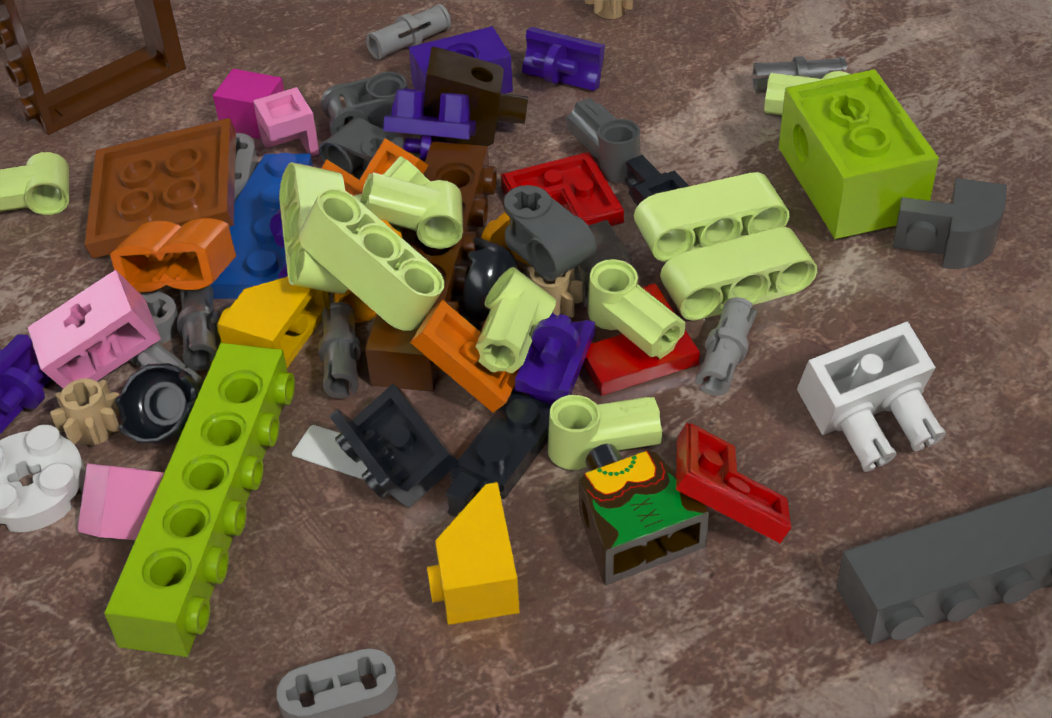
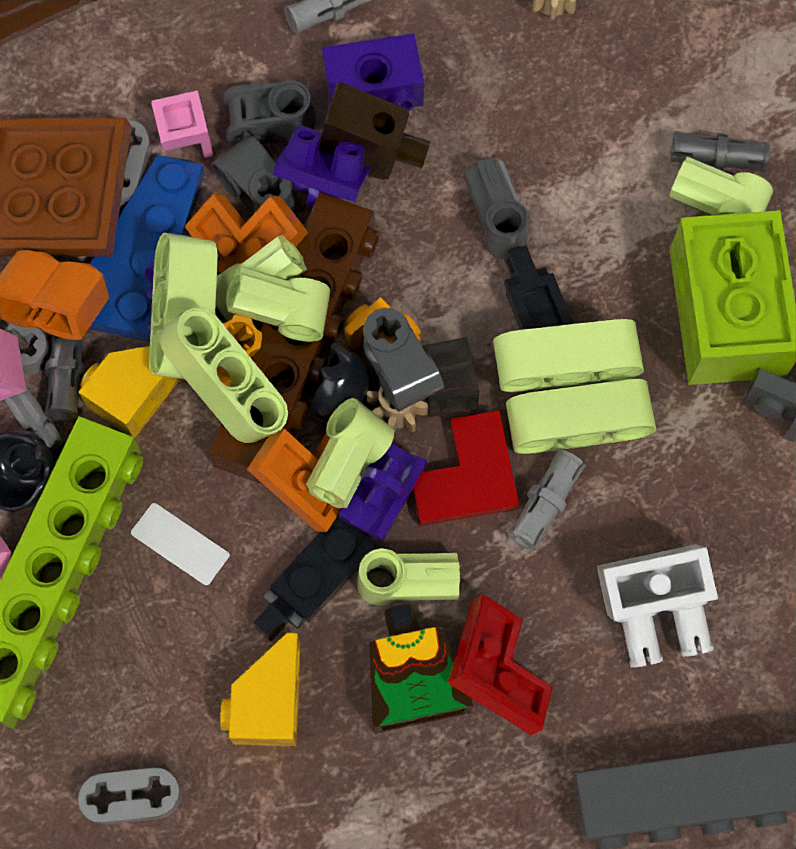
camera: 10 degrees right, 25 degrees up
(236, 97) = (150, 77): dark pink brick -> none
(339, 350) = (188, 433): flat silver pin -> none
(396, 446) = (217, 557): black bracket -> none
(563, 58) = (482, 83): dark purple hips -> none
(574, 184) = (452, 254): red tile -> none
(623, 305) = (466, 459): yellowish green piece -> none

